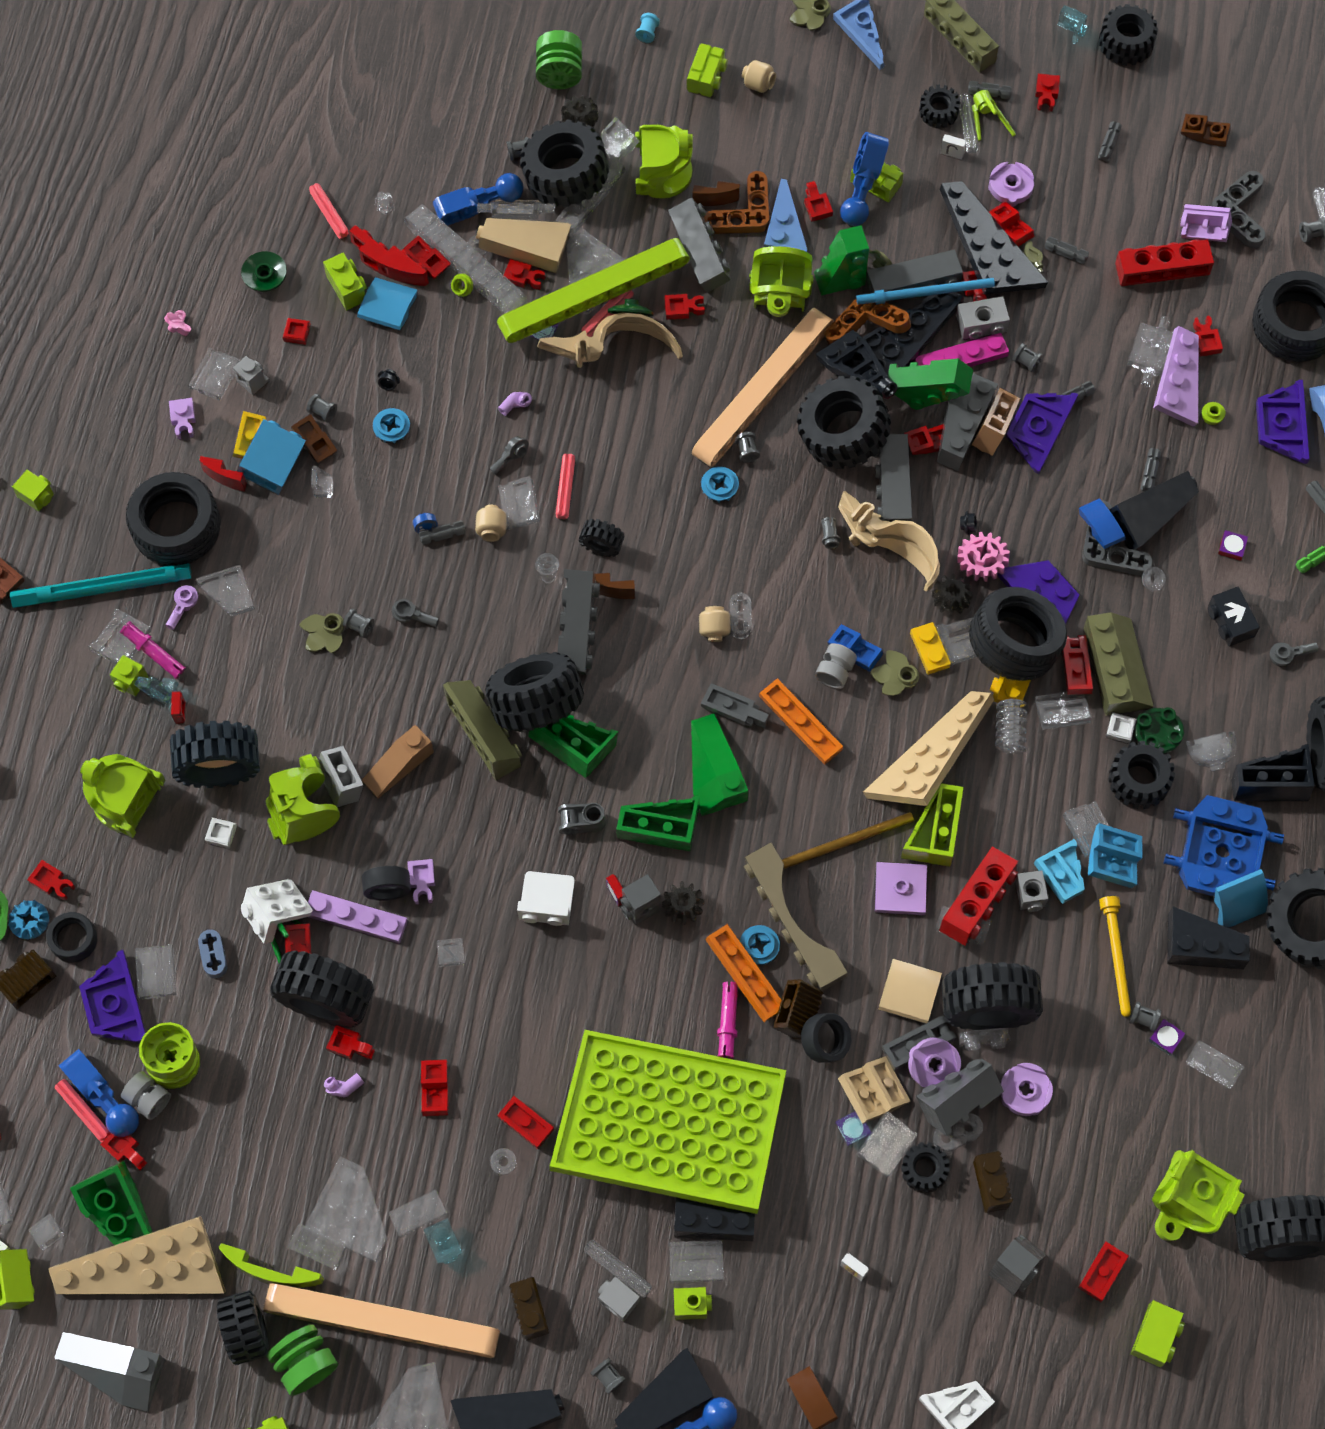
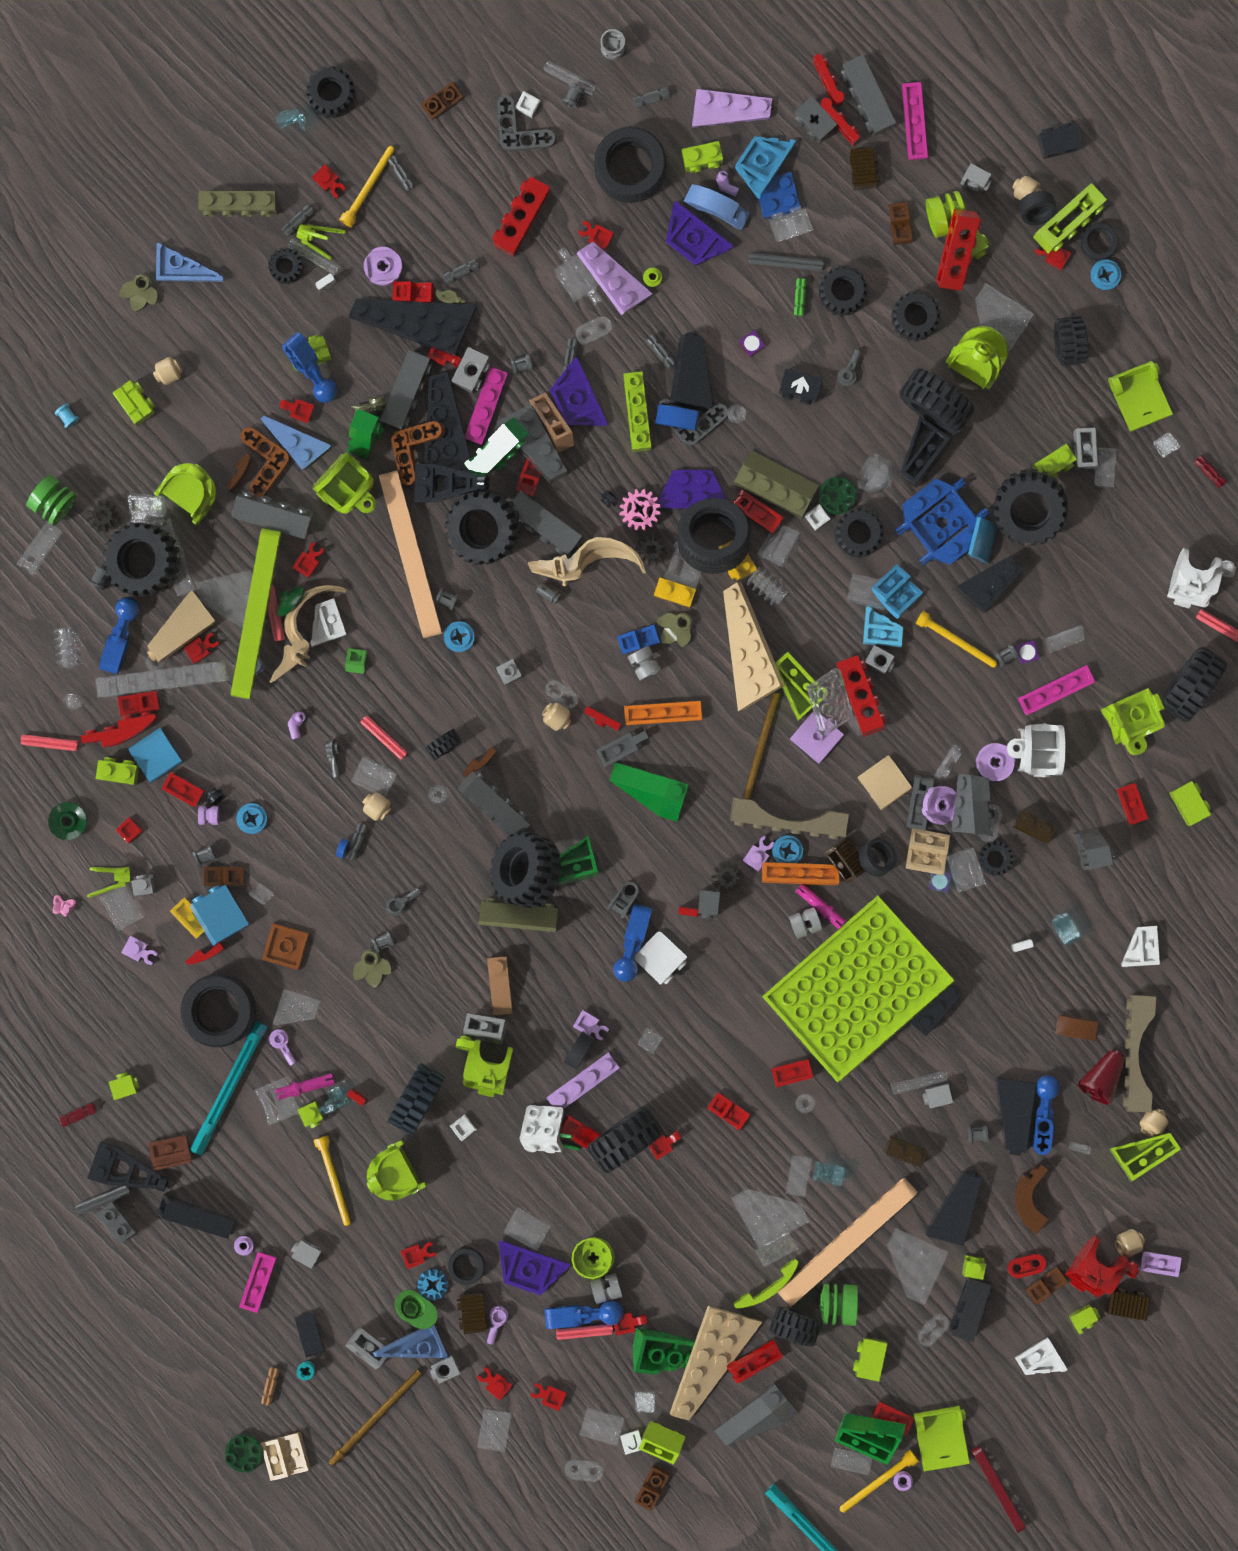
camera: 50 degrees left, 20 degrees up
(37, 1009) = (498, 1316): none -> lavender plate
(104, 711) = (323, 1145): none -> yellow piece
(173, 1317) = (755, 1362): none -> red plate
(218, 953) = (543, 1182): sand blue beam -> none
(244, 347) = (121, 875): none -> lime plant
(286, 541) = (285, 946): none -> dark orange tile
(342, 1088) = (688, 1166): lavender arm -> none
(365, 386) = (208, 815): none -> lavender wheel
(372, 348) = (182, 789): none -> red plate
(431, 161) = (66, 647): none -> clear piece
(456, 285) = (179, 699): lime plate -> none
(507, 85) = (40, 547): none -> clear plate
(517, 209) = (151, 617): clear plate -> none
(551, 855) = (625, 968): none -> blue beam
(620, 412) = (356, 661): none -> bright green slope
(636, 361) = (327, 623): none -> white wing
(660, 824) = (667, 852): green wedge -> none
(690, 1010) = (798, 924): none -> light grey wheel
(691, 1303) = (972, 1055): lime brick -> none
(696, 1261) = (949, 1034): clear plate -> none
(722, 549) = (509, 672): none -> light grey brick
(730, 915) = (757, 856): none -> lavender plate
(746, 667) = (601, 719): none -> red plate
(880, 296) = (407, 427): dark azure bar -> none
(910, 1300) = (1065, 929): none -> clear light blue bracket
(947, 865) = (830, 701): none -> clear plate
(992, 996) = (932, 743): black tyre -> none
(1030, 126) = (348, 217): none -> yellow piece
(1074, 486) = (637, 411): none -> lime brick
(1076, 1119) = (1040, 750): none -> white animal
(1117, 395) = (593, 330): none -> clear plate
(1154, 1096) = (1056, 690): none -> dark pink plate
(1206, 223) = (515, 165): lavender hinge -> none
(1269, 200) = (527, 104): none -> white tile

